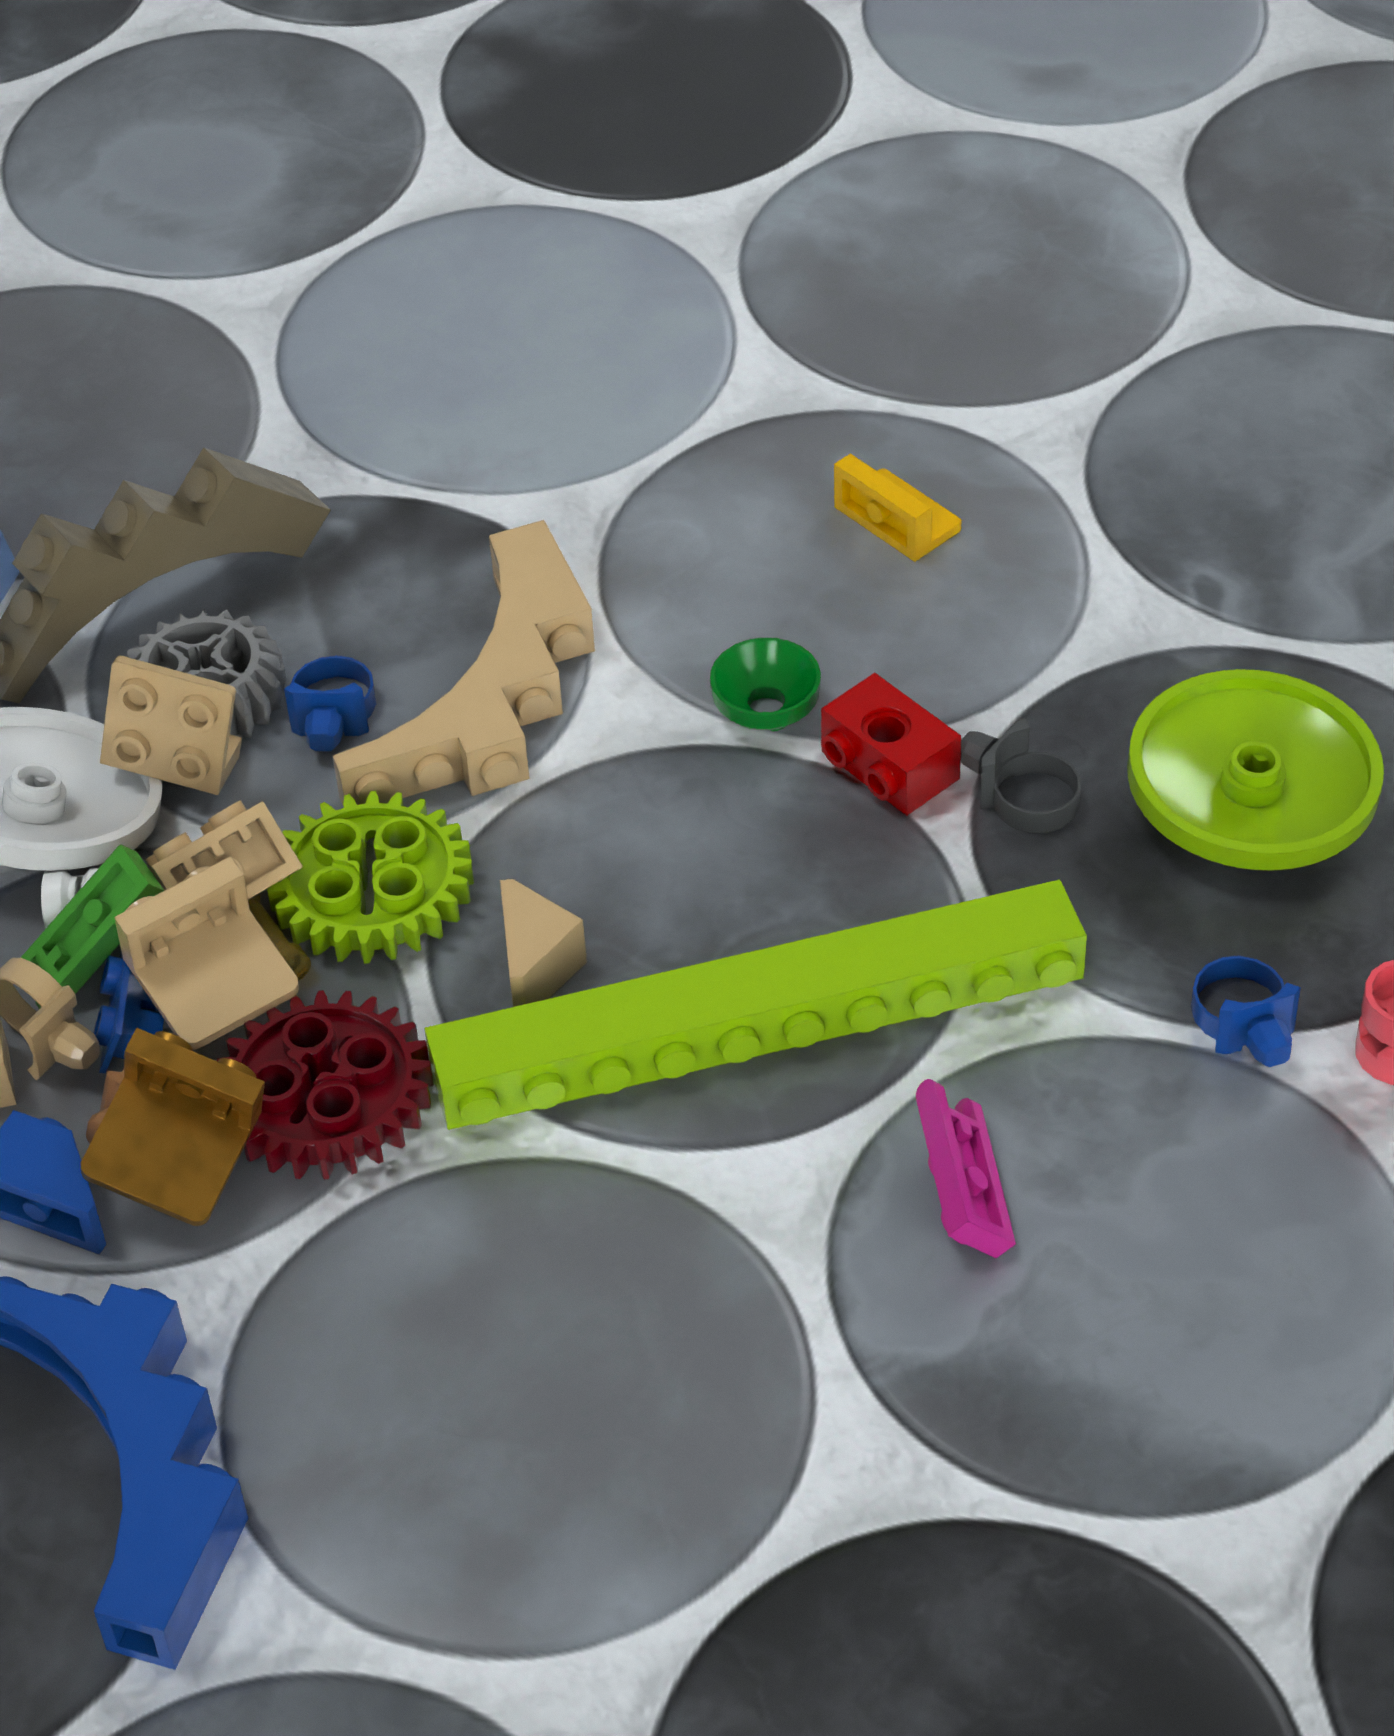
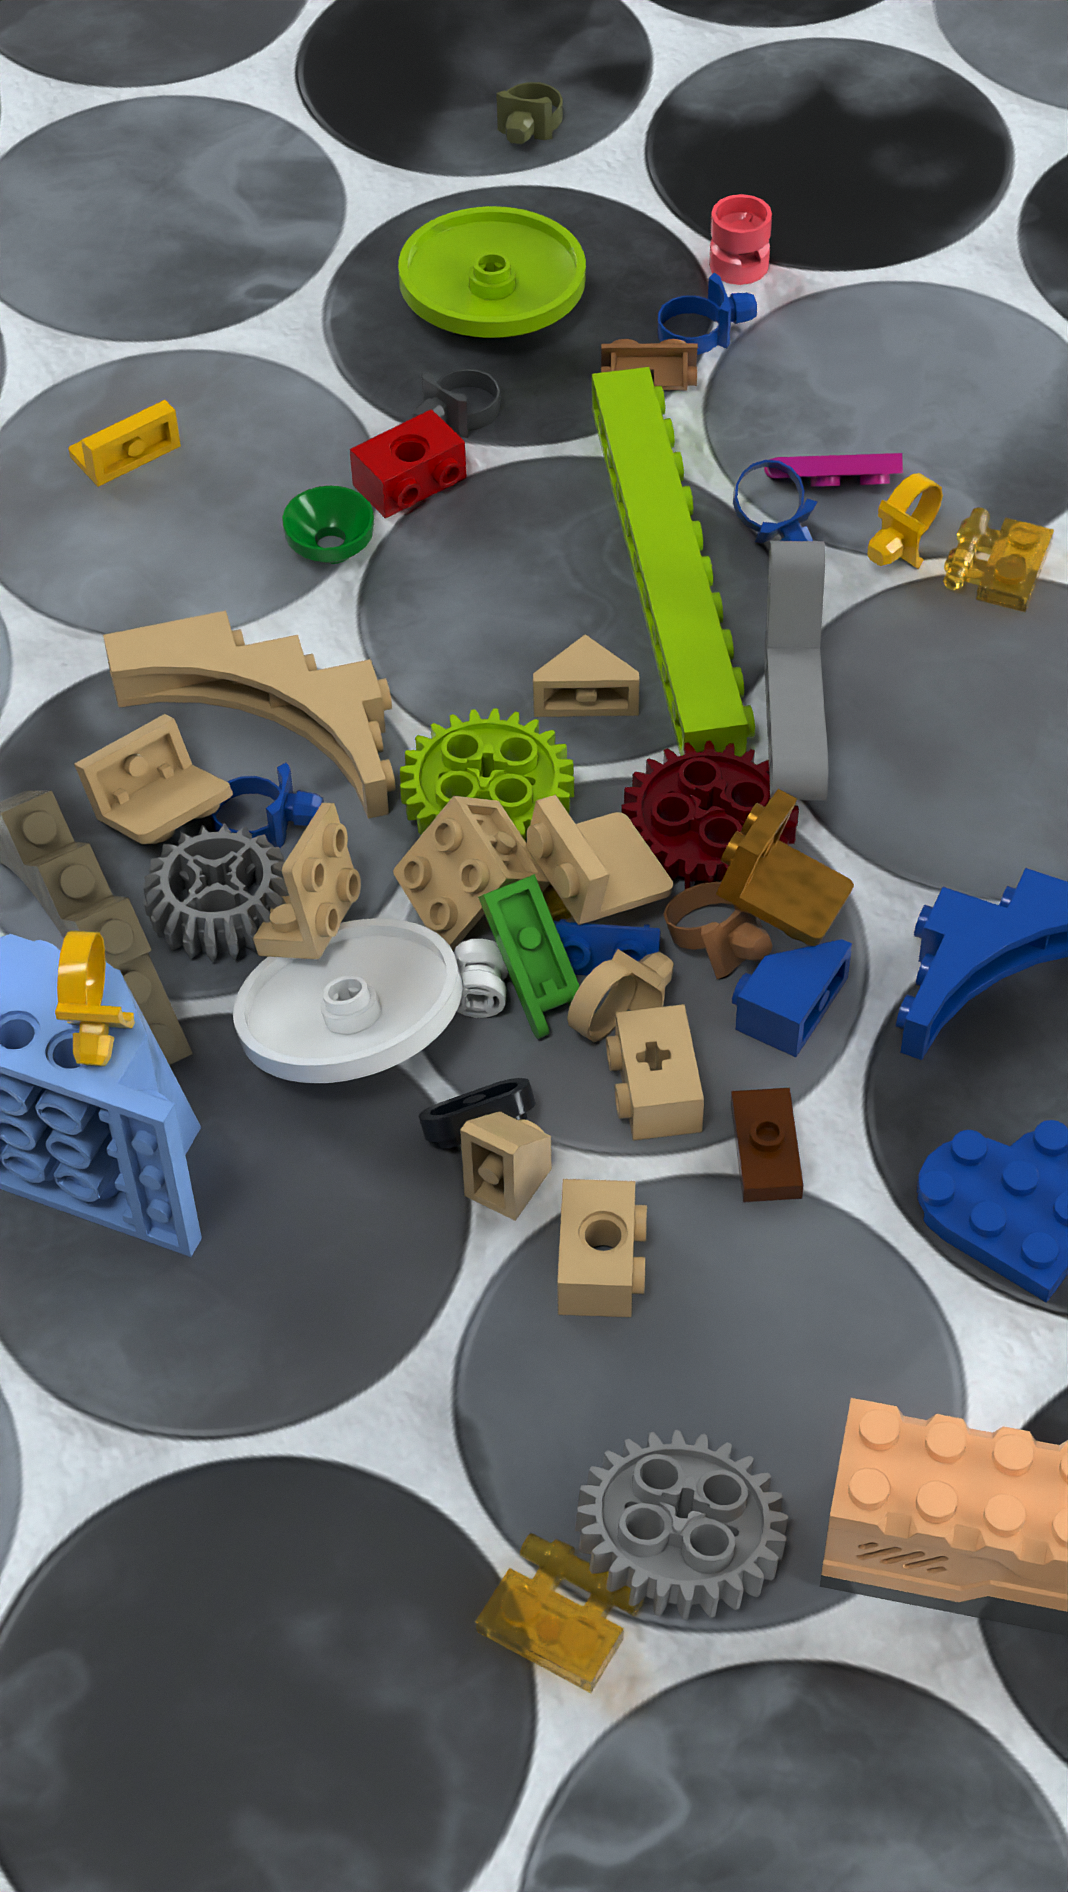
camera: 85 degrees left, 5 degrees up
(350, 603) = (149, 783): none -> tan bracket
(495, 1136) = (794, 670): none -> light grey beam
(820, 1394) = (1013, 564): none -> clear yellow plate
(823, 1136) = (788, 530): none -> blue piece
(828, 1245) = (900, 531): none -> yellow piece
(1143, 977) = (670, 360): none -> medium nougat hinge

